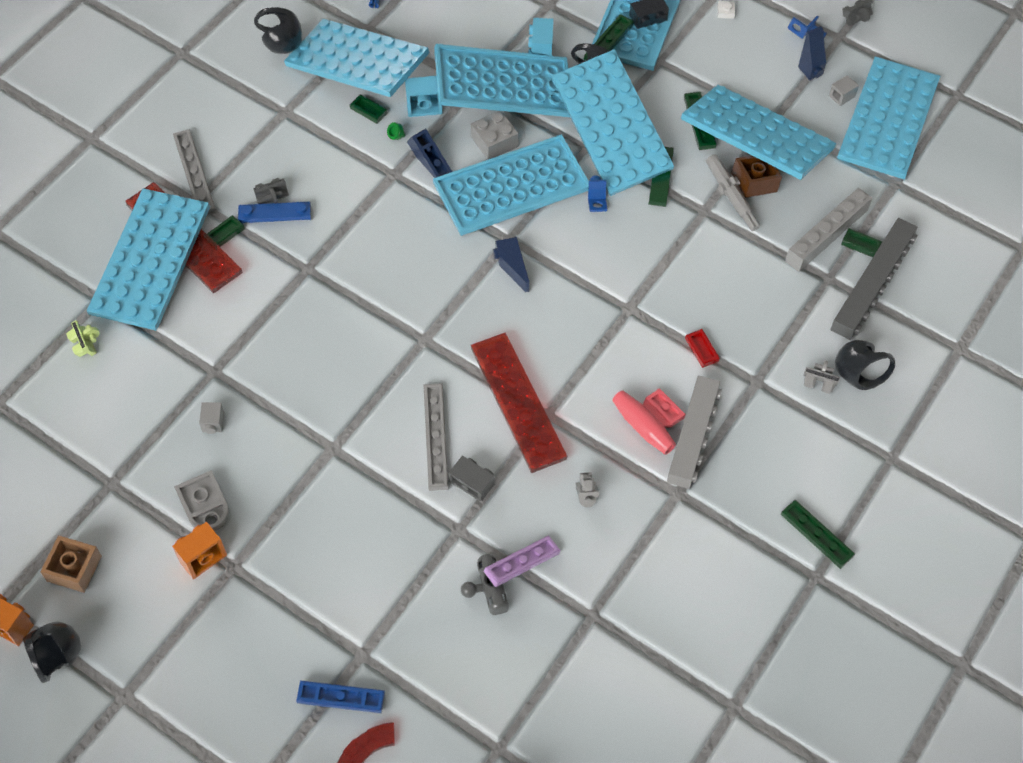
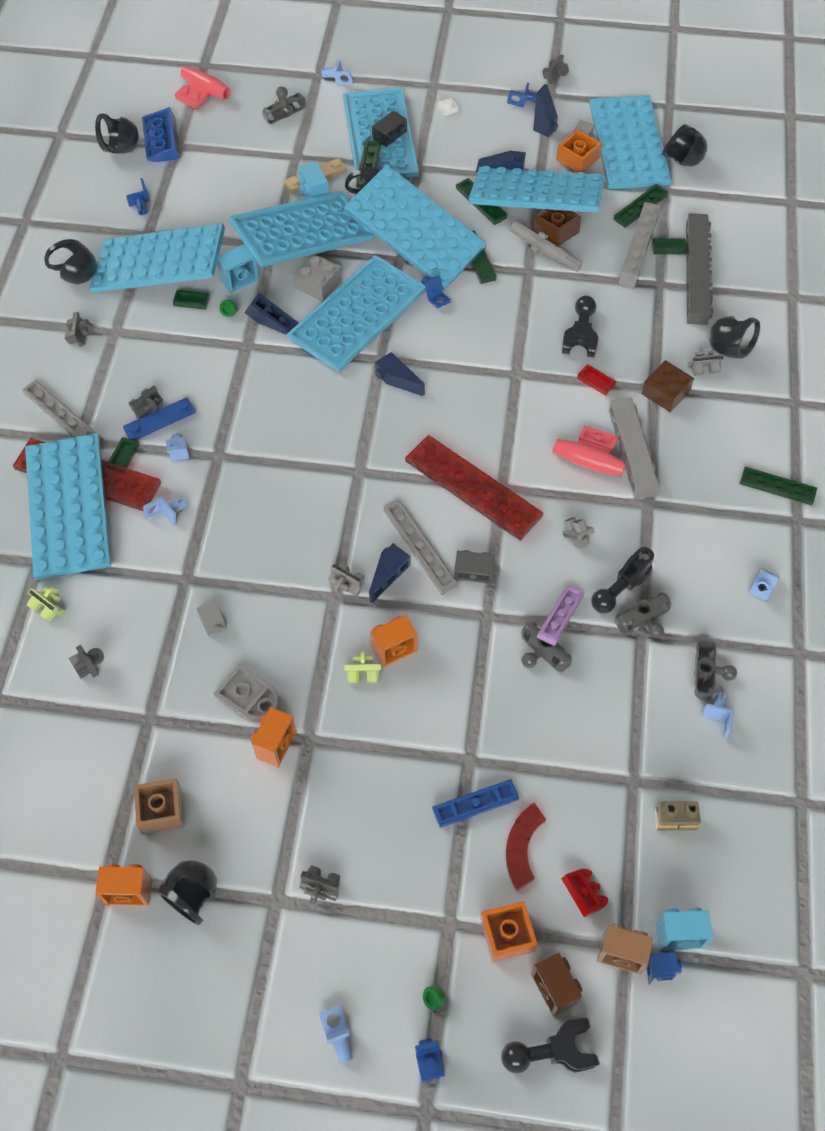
camera: 25 degrees left, 0 degrees up
(83, 407) = (84, 663): none -> dark grey hips
(161, 703) = (318, 886): none -> dark grey hips
(234, 301) = (167, 509): none -> light blue bracket
(252, 96) = (79, 329): none -> dark grey hips
(272, 245) = (177, 447): none -> light blue bracket
(322, 532) = (371, 669): none -> yellowish green hips
(347, 438) = (345, 580): none -> light grey hips
(354, 513) = (394, 640): none -> orange brick
(392, 444) = (390, 567): none -> dark blue slope
(569, 30) = (329, 170): none -> tan plate
(592, 593) = (654, 610): none -> dark grey piece
(610, 554) = (628, 577): none -> black piece
(615, 725) = (720, 712): none -> light blue bracket
(622, 688) = (707, 680): none -> dark grey piece
(715, 293) = (582, 332): none -> black piece
(739, 623) = (764, 584): none -> light blue bracket
(746, 88) = (507, 159): none -> dark blue slope
(766, 385) = (667, 386): none -> reddish brown brick
(826, 108) = (579, 151): none -> orange brick
(870, 185) = (633, 210): none -> dark green tile
(941, 149) = (688, 147): none -> black piece

